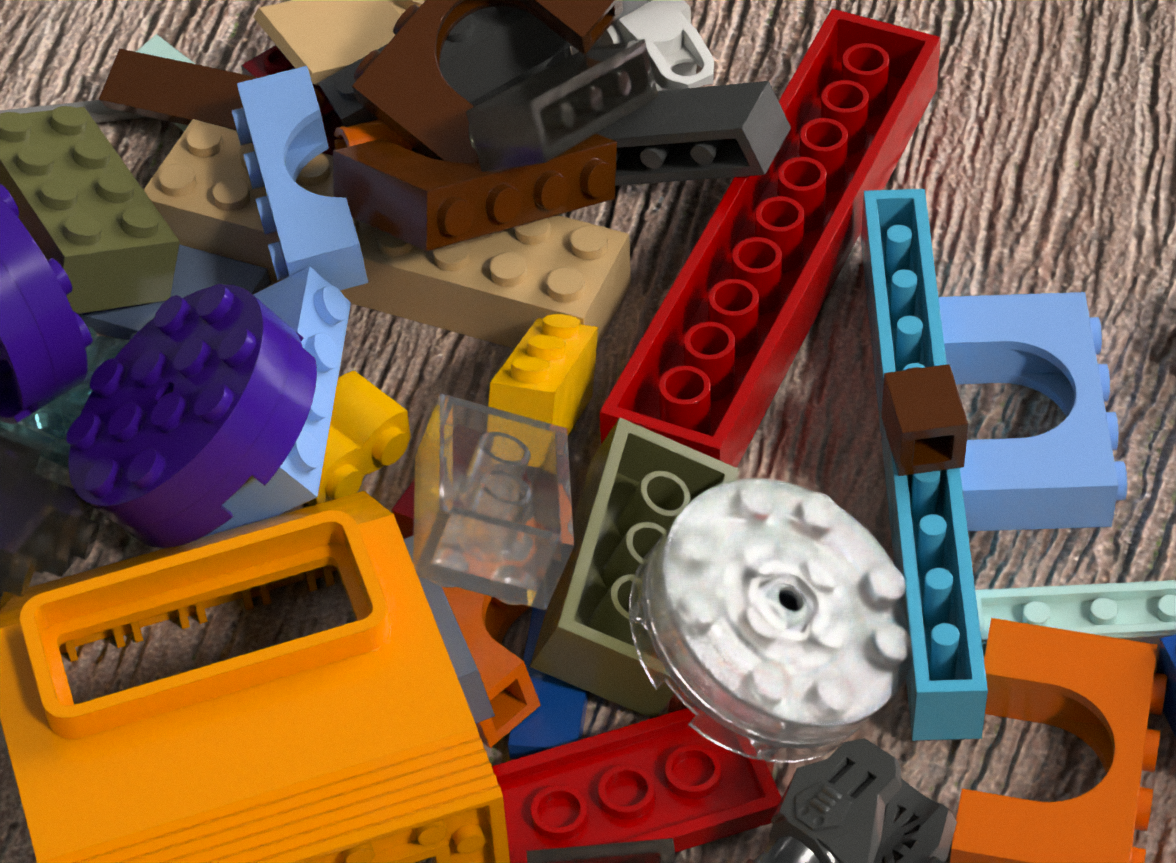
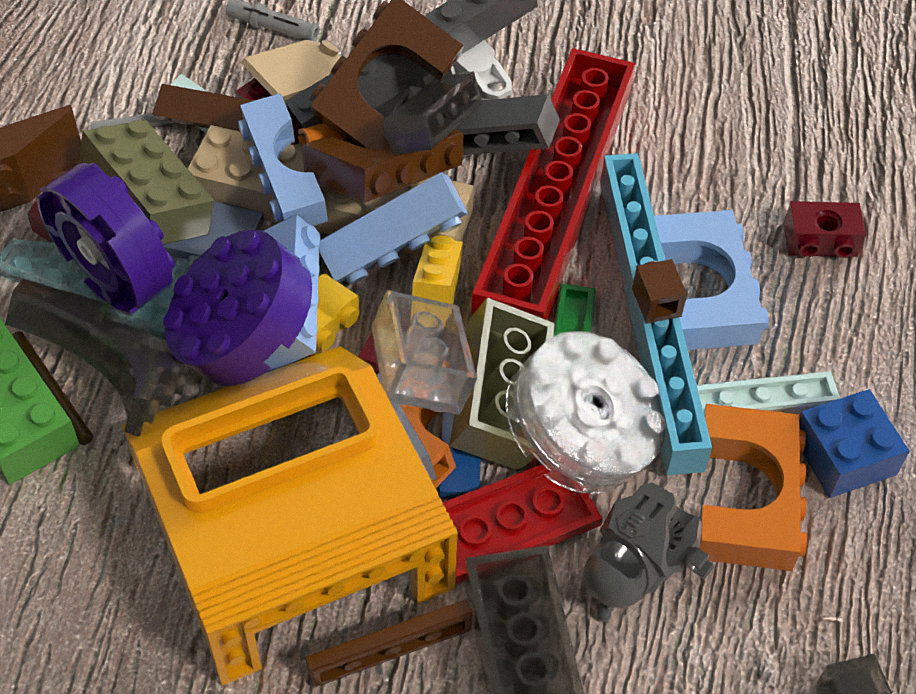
camera: 10 degrees left, 5 degrees up
(476, 299) = (392, 228): none -> light blue brick
(788, 447) = (574, 309): none -> green tile

